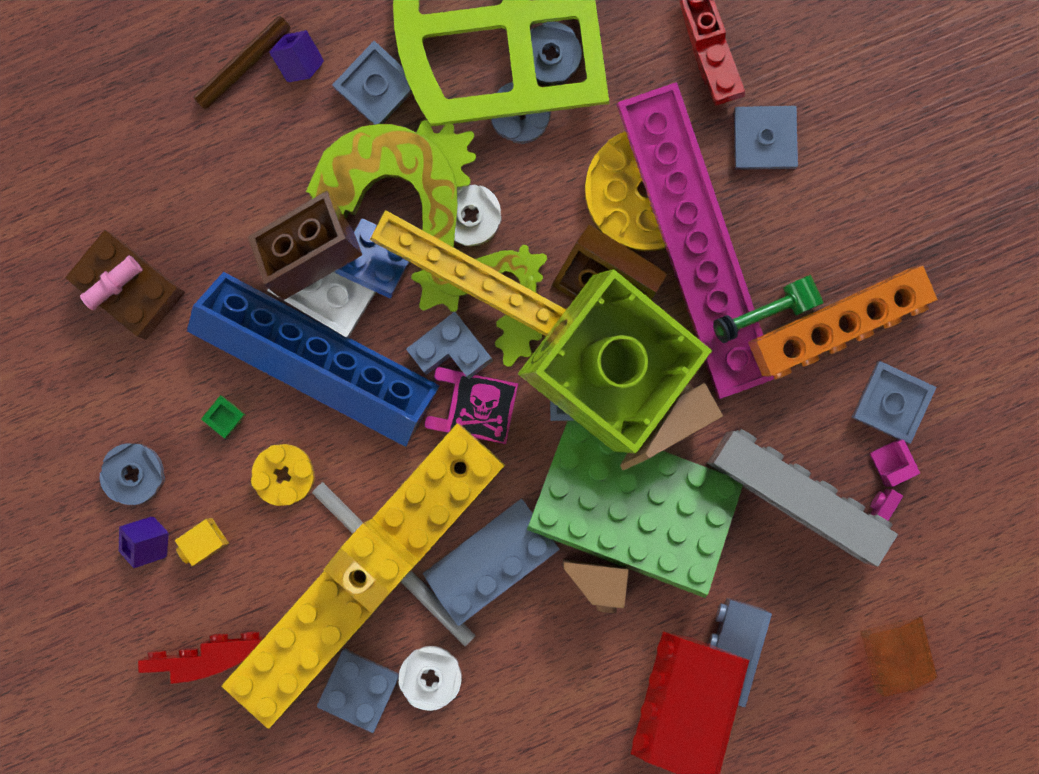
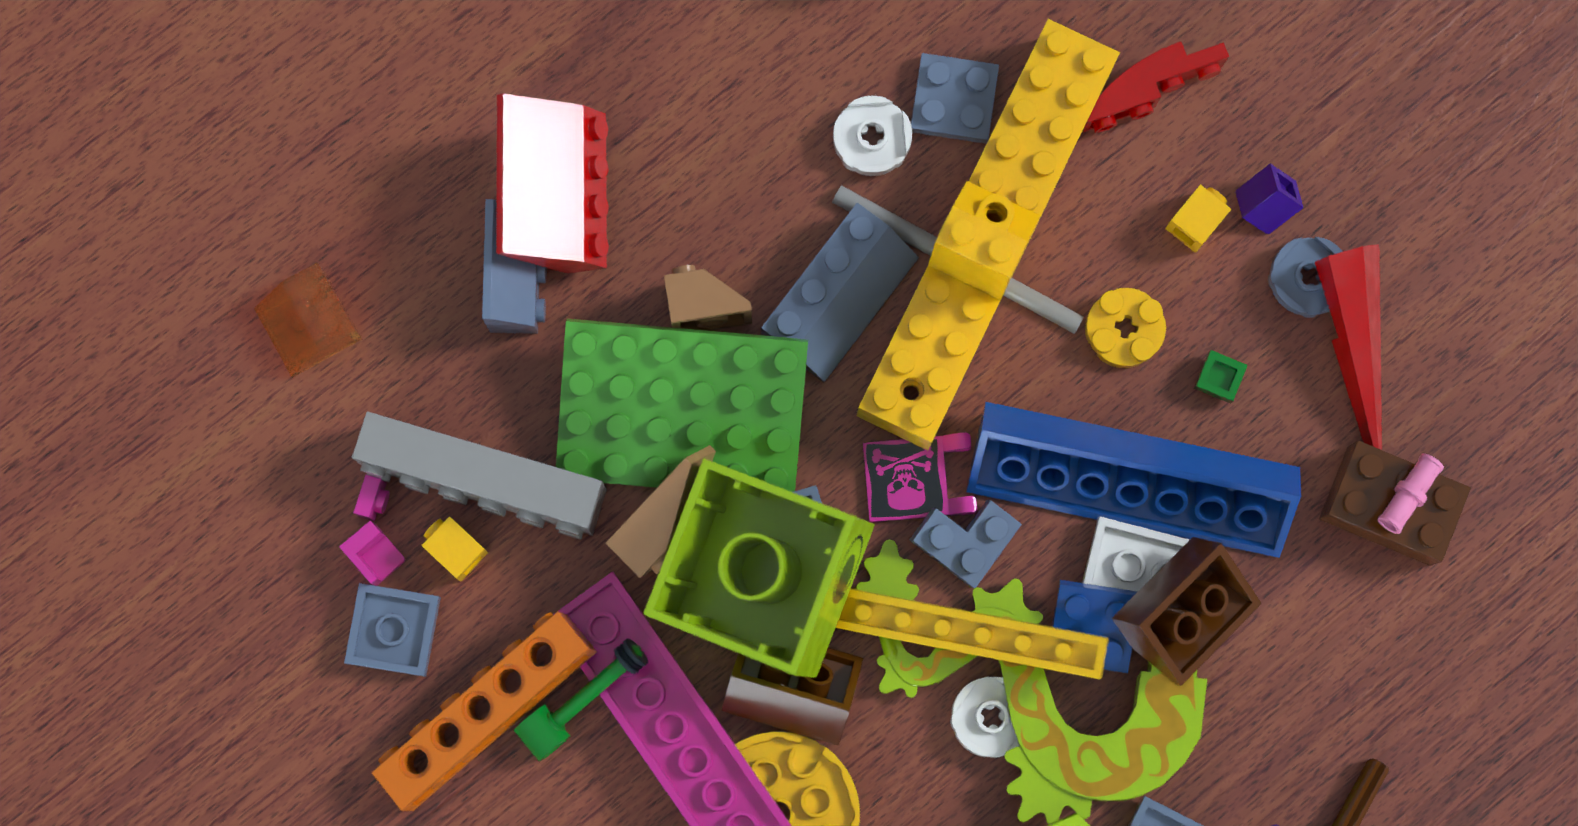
camera: 155 degrees right, 5 degrees down
(105, 444) = (1353, 298): none -> red wedge
(833, 450) = (453, 547): none -> yellow brick

